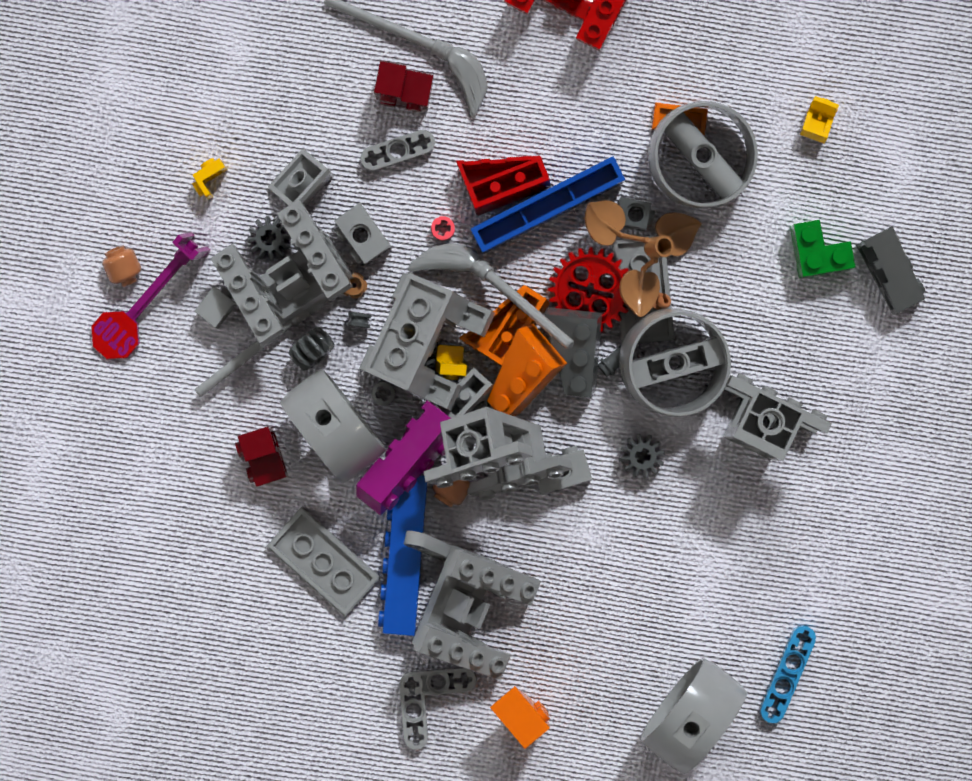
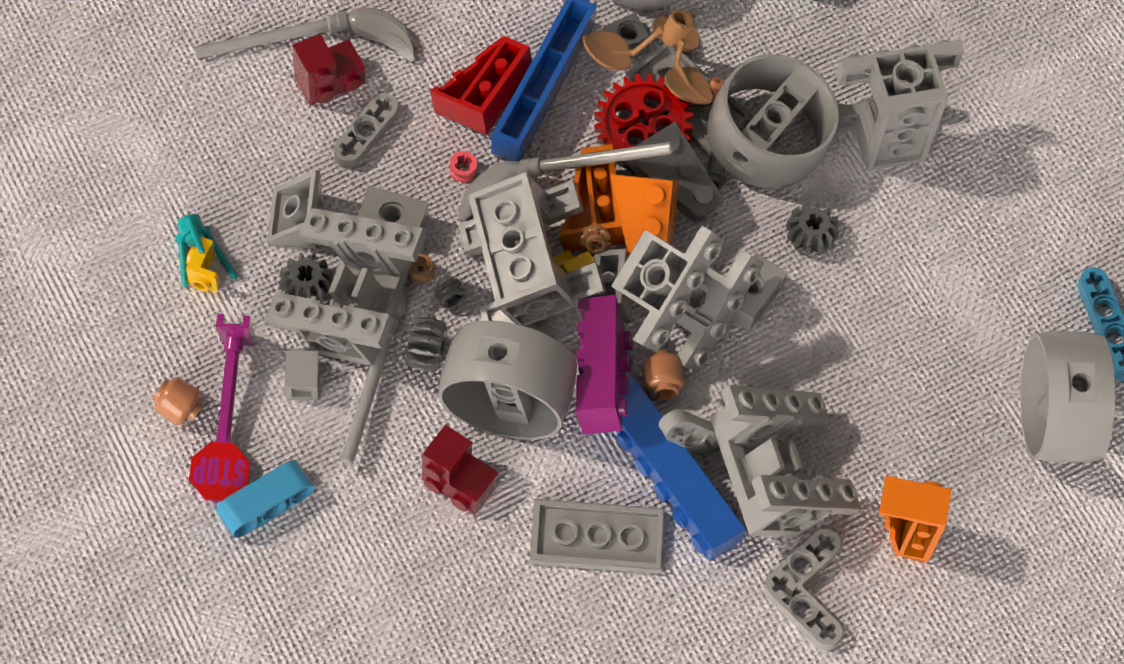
camera: 45 degrees left, 25 degrees down
(129, 377) = (265, 498): none -> dark azure beam
(219, 145) = (191, 231): none -> teal plant
(478, 360) = (595, 233): none -> medium nougat plate

